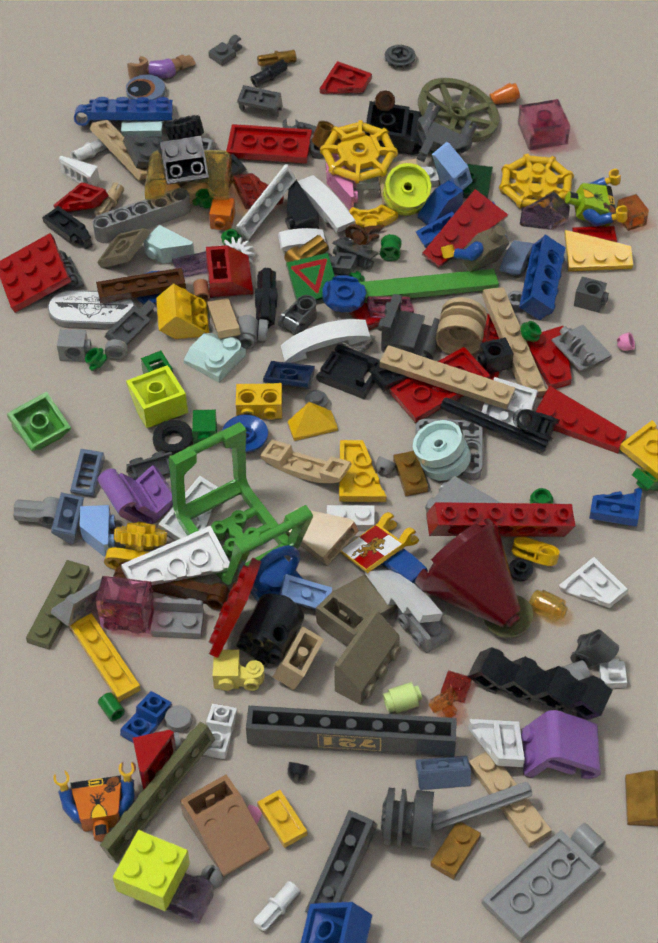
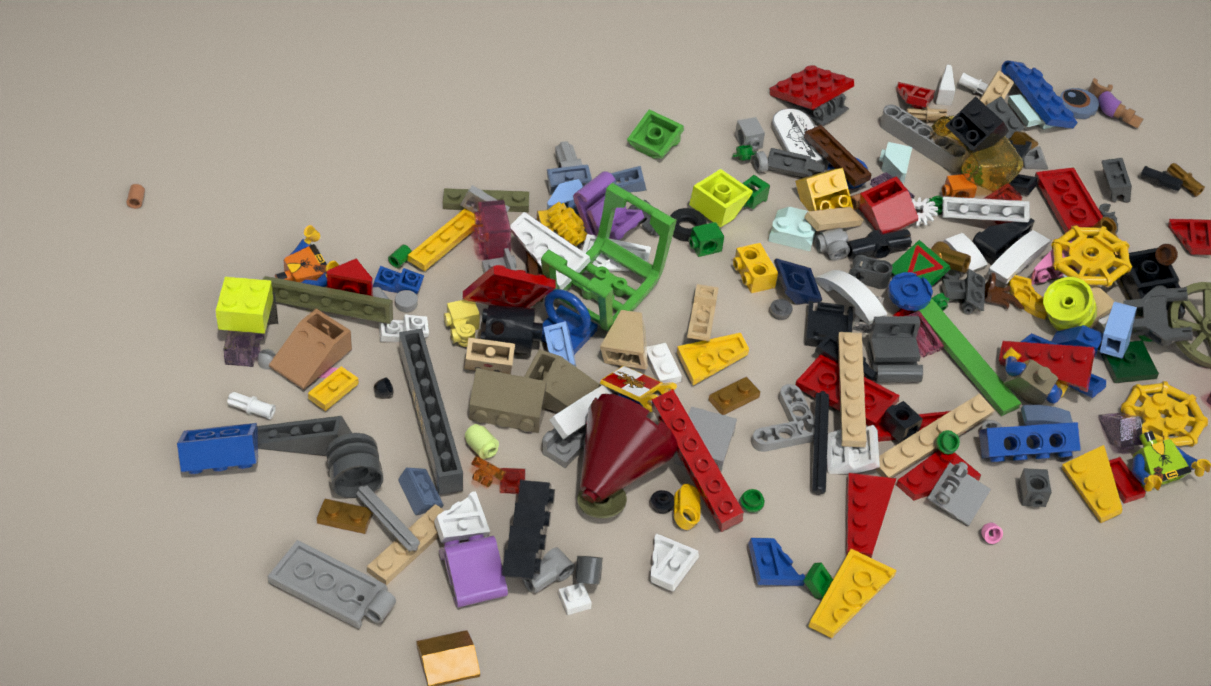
camera: 65 degrees right, 5 degrees down
(68, 227) = (879, 97): black hinge -> none
(123, 247) = (874, 134): dark tan plate -> none
(184, 127) = (1041, 135): black tyre -> none
(225, 52) = (1167, 142): dark grey plate -> none
(255, 430) = (714, 266): blue dish -> none
(311, 421) = (755, 312): yellow slope -> none
(386, 464) = (731, 373): light grey hinge -> none
(390, 247) = (995, 317): green wheel -> none
(441, 450) = (761, 403): light aqua wheel -> none
(461, 325) = (921, 384): tan wheel -> none
(539, 425) = (838, 474): black piece -> none
(548, 605) = (628, 528): clear yellow brick -> none
(637, 212) = (1173, 501): clear orange brick -> none

